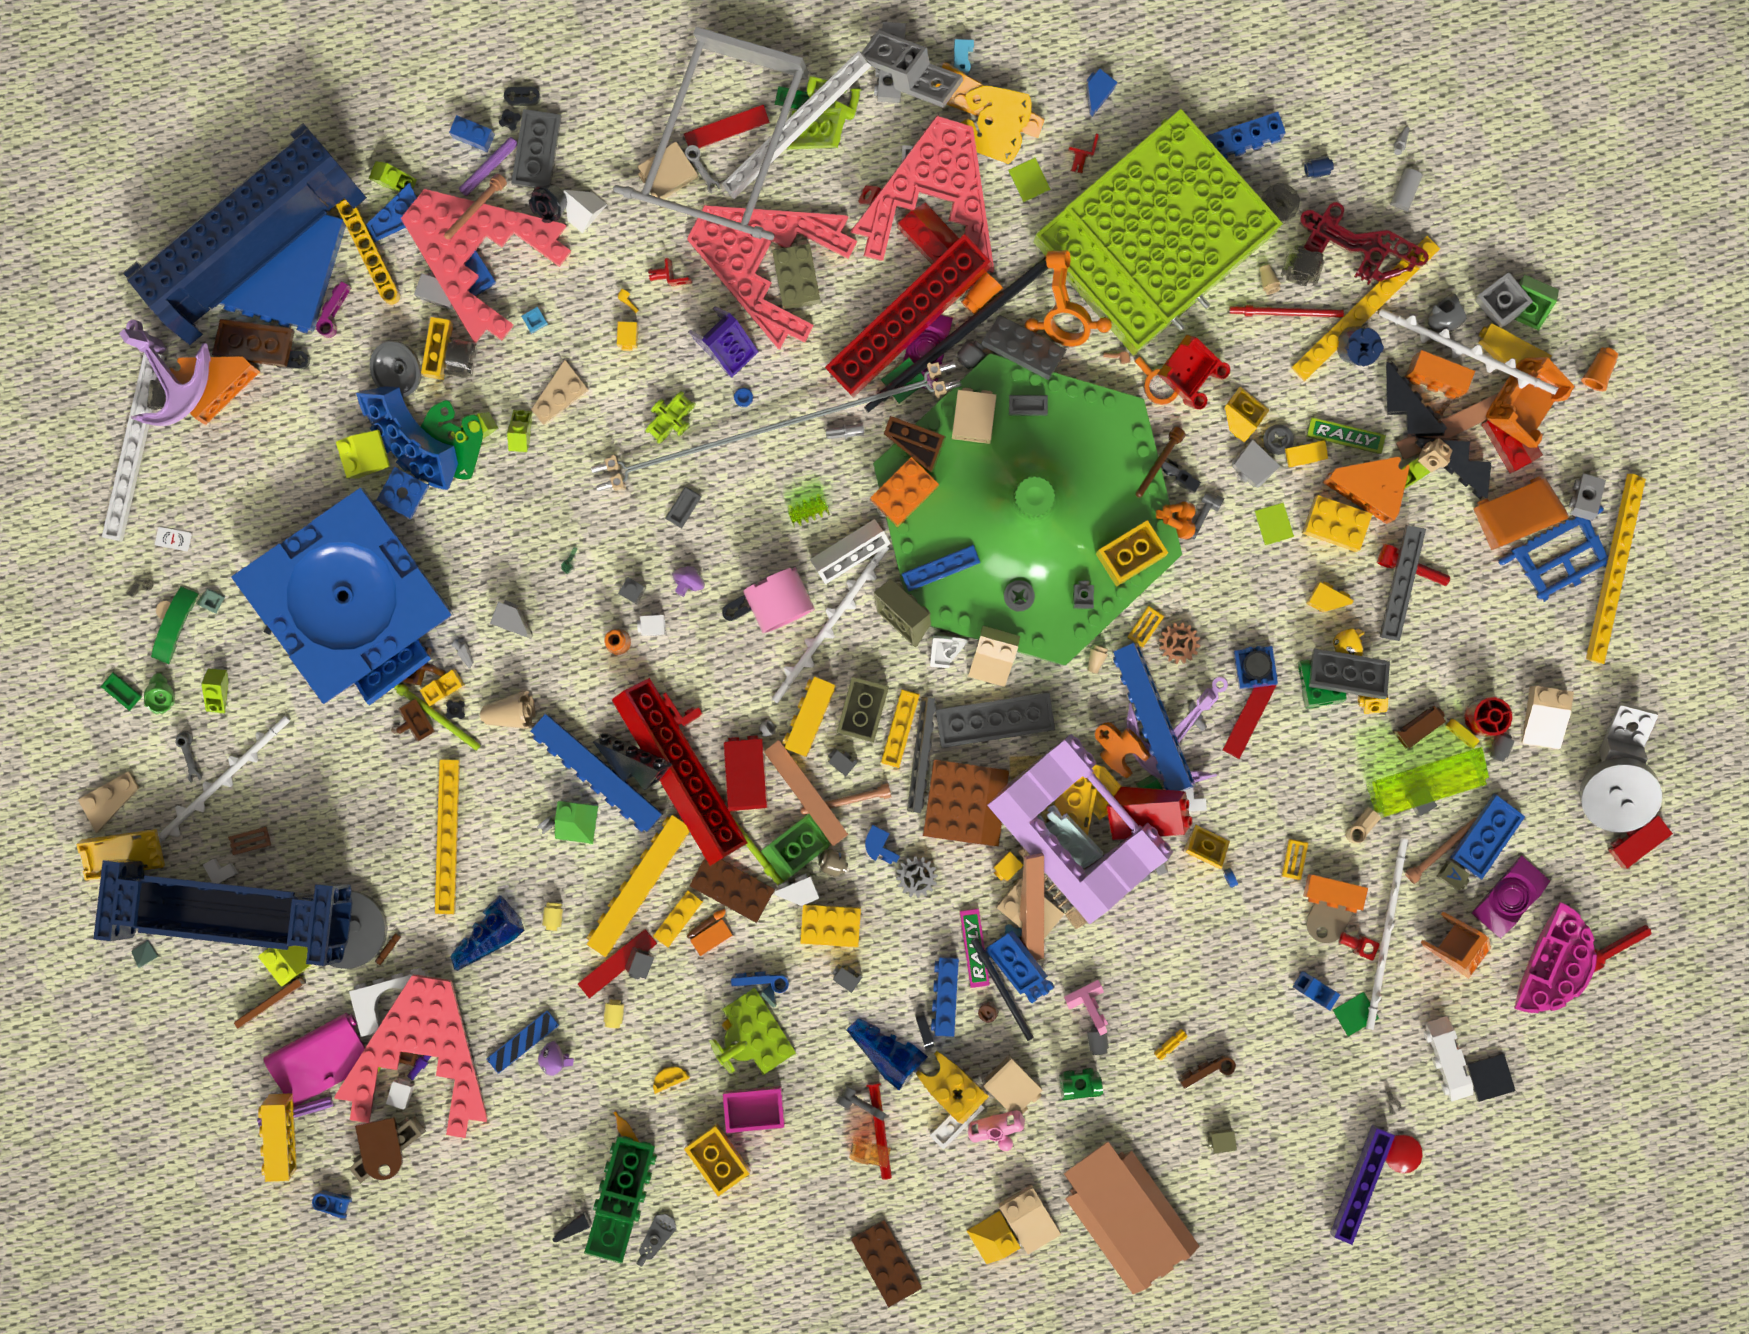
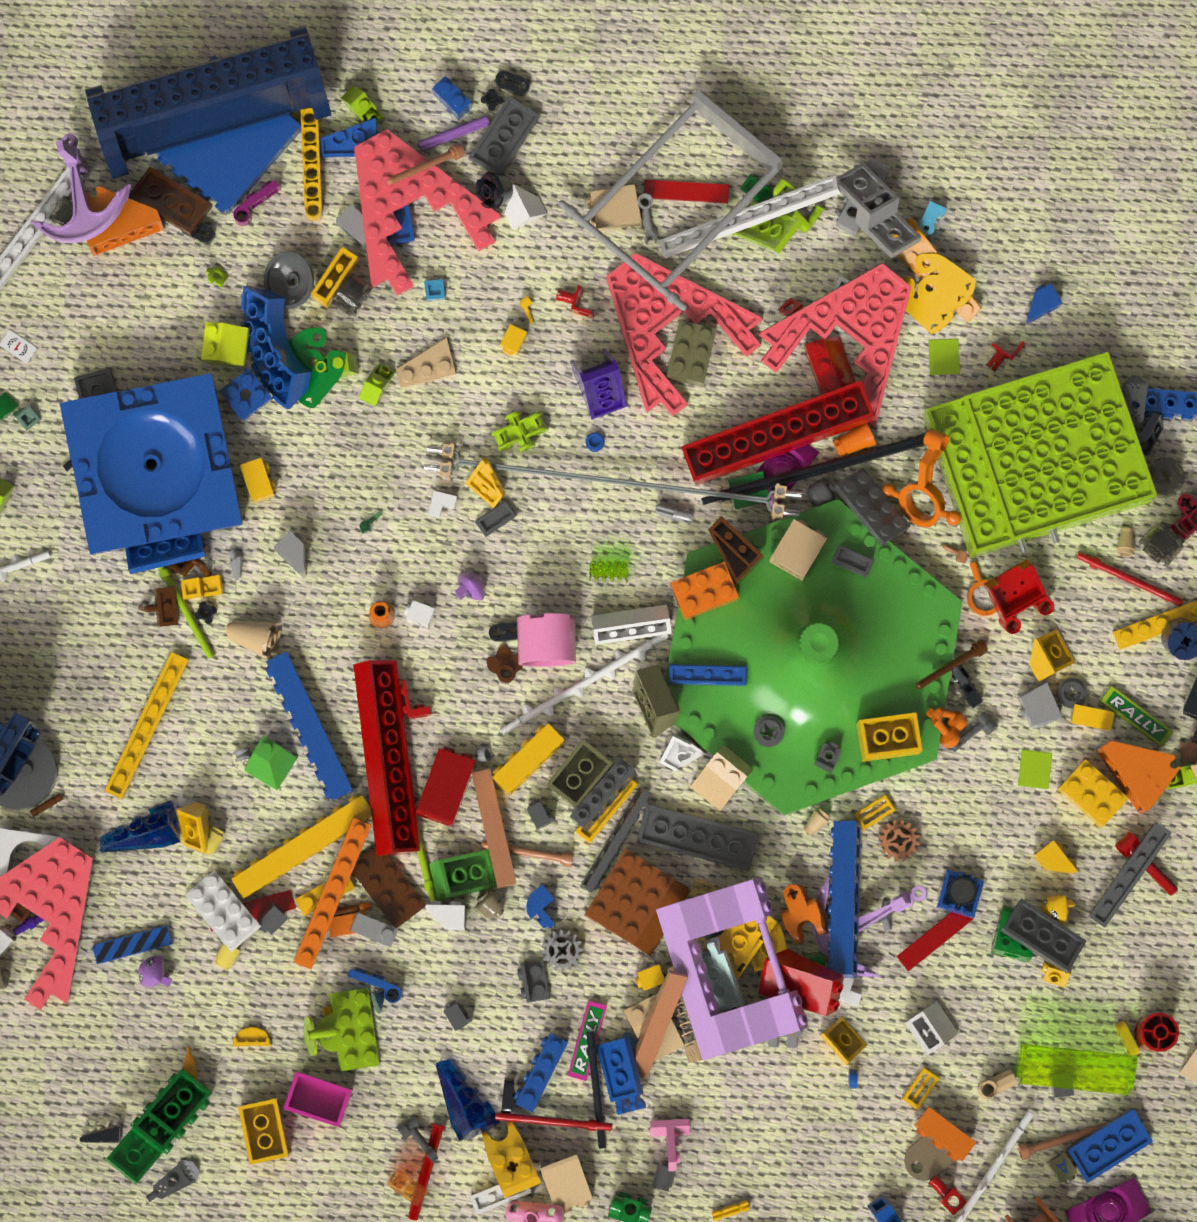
camera: 20 degrees right, 5 degrees down
(260, 542) = (95, 383): none -> dark grey tile
(327, 393) = (216, 275): none -> lime plant
(448, 567) = (257, 480): none -> yellow brick
(531, 910) = (194, 826): none -> yellow slope
(591, 976) = (223, 910): none -> white plate
(625, 512) = (439, 501): none -> white piece
(632, 590) = (415, 574): dark grey brick -> none
(632, 761) = (347, 729): black slope -> none
(660, 479) = (486, 483): none -> yellow wing
(684, 916) = (332, 892): none -> orange brick
(737, 933) = (373, 929): none -> light grey slope
(748, 635) = (504, 661): none -> reddish brown plate
(830, 925) = (463, 960): yellow brick -> none
(892, 719) = (603, 795): none -> dark grey brick
(903, 916) = (534, 981): none -> dark grey bracket
(988, 1012) = (573, 1105): reddish brown tile -> none
(1012, 1023) = (591, 1125): none -> red bar
(1223, 138) = (1136, 395): none -> dark grey piece
(1250, 163) = (1151, 433): none -> black plate
(1282, 801) = (931, 1028): none -> white slope
(1420, 726) = (1090, 1015): reddish brown window -> none
(1501, 747) = (1158, 1067): dark grey brick -> none

